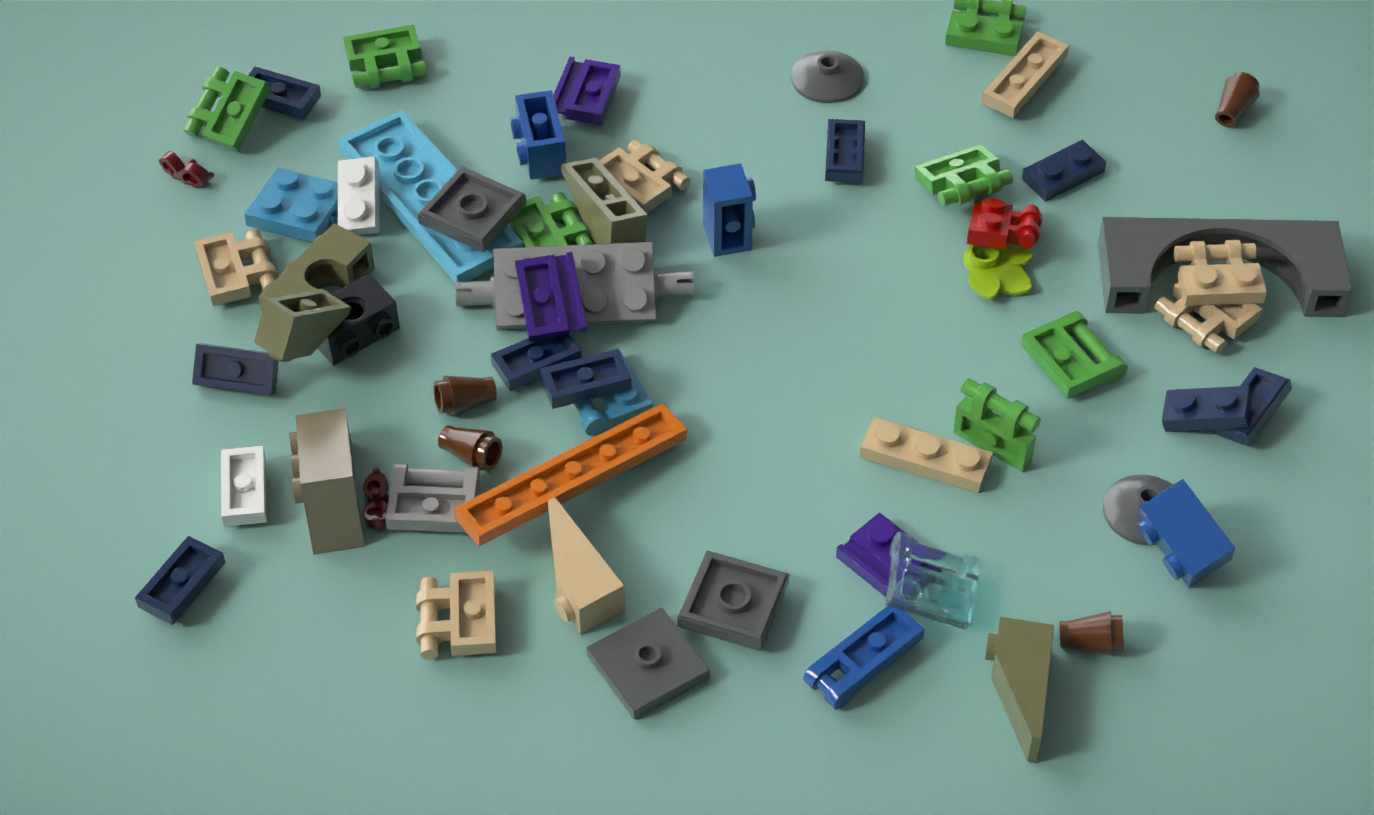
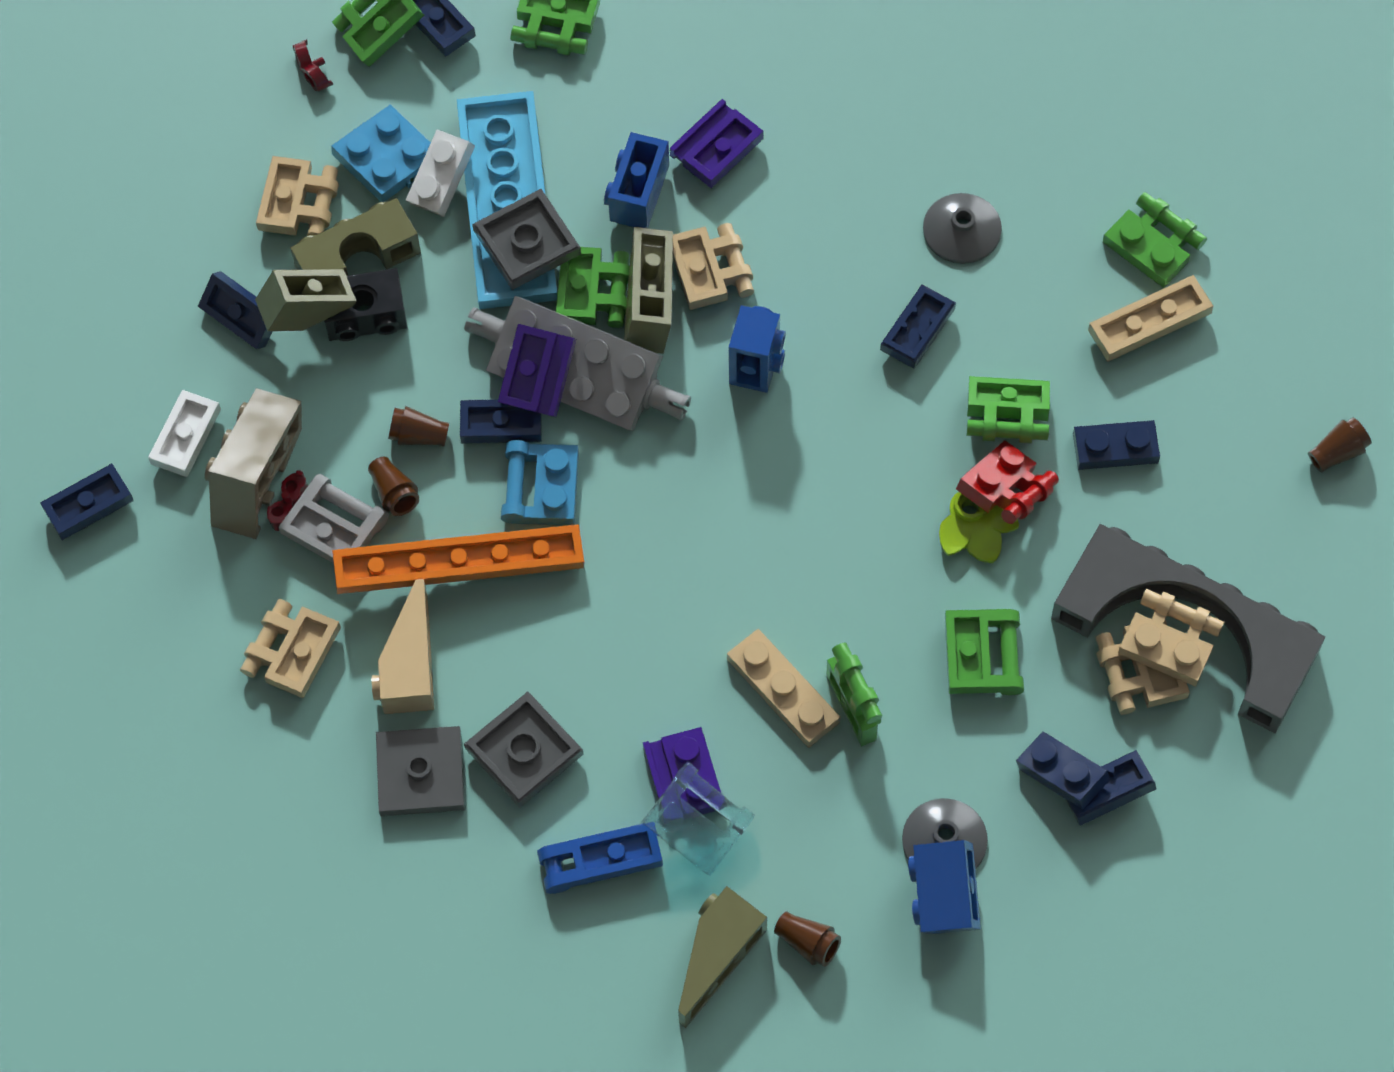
camera: 30 degrees right, 15 degrees up
(585, 378) = (522, 469): dark blue plate -> none

